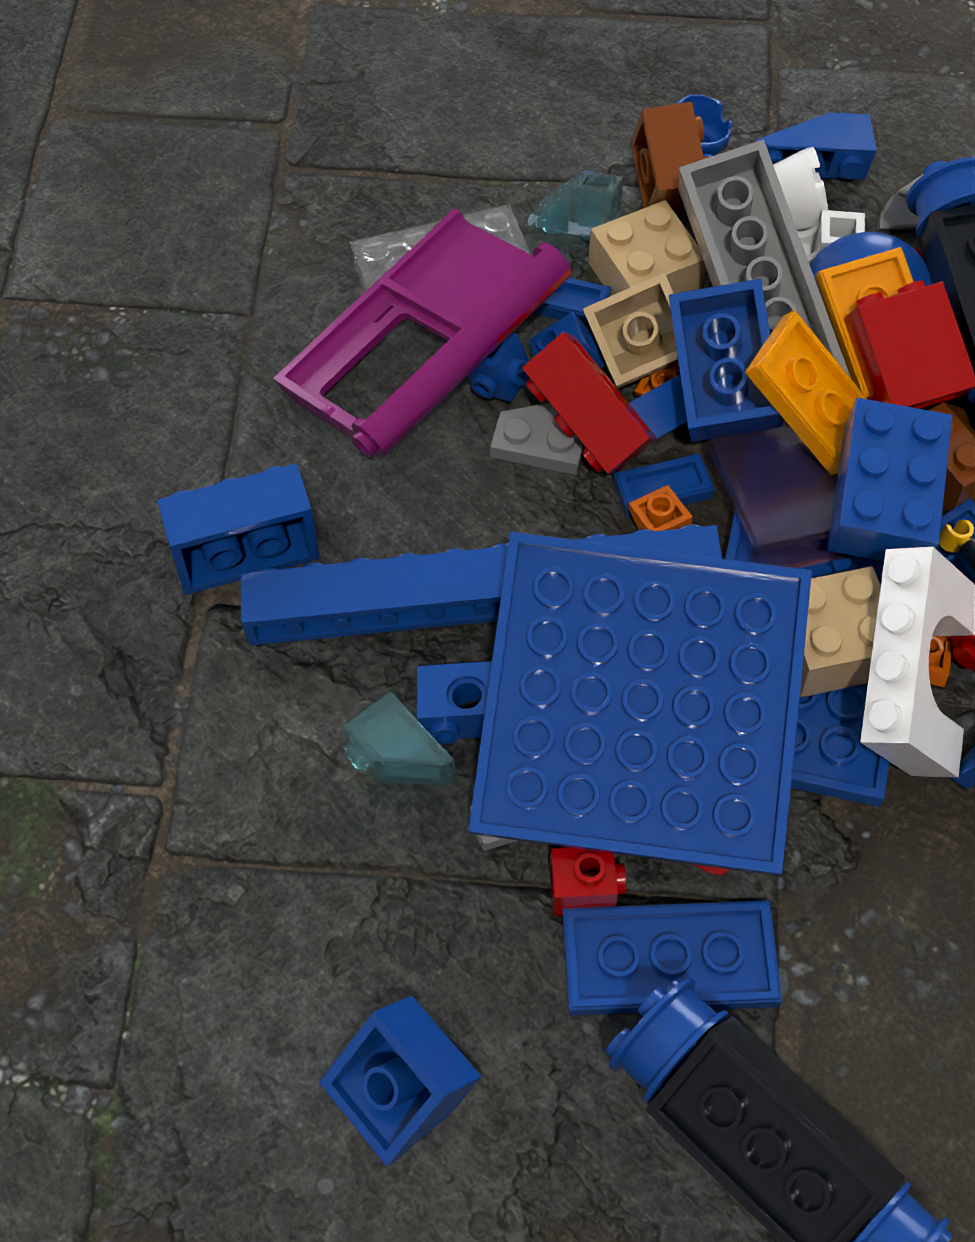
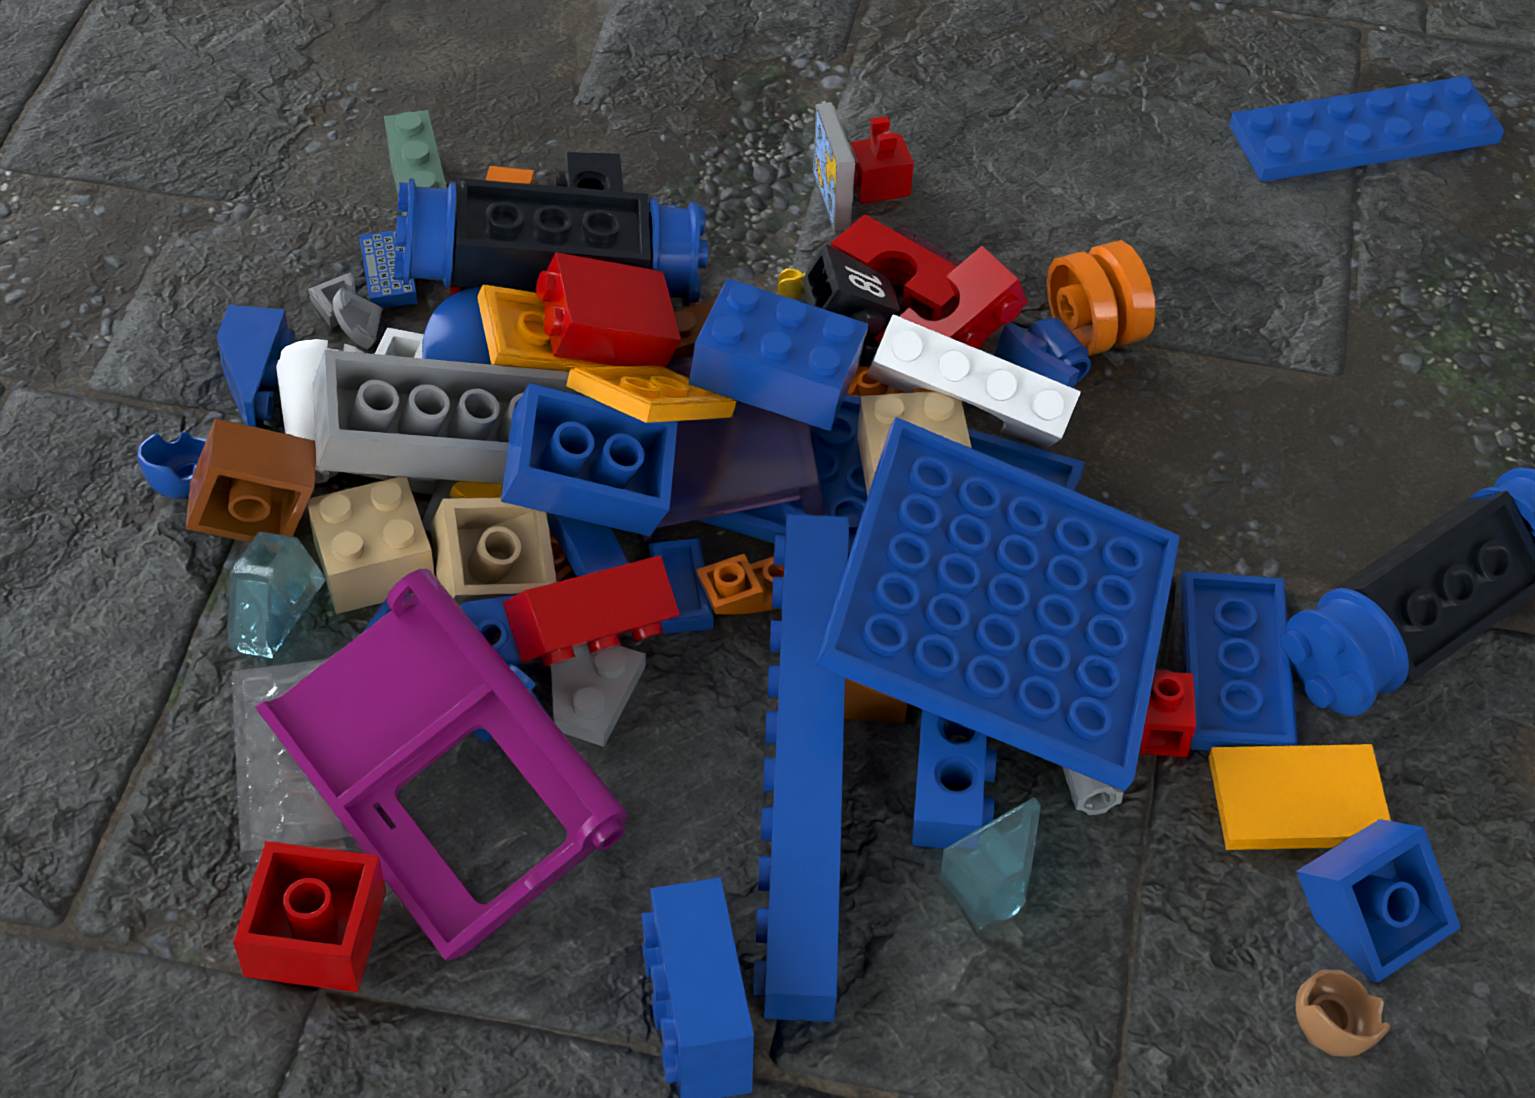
camera: 85 degrees left, 10 degrees down
(267, 1034) = (1339, 1014): none -> medium nougat hair
(287, 285) = (310, 916): none -> red brick
(516, 1015) = (1296, 794): none -> light orange tile

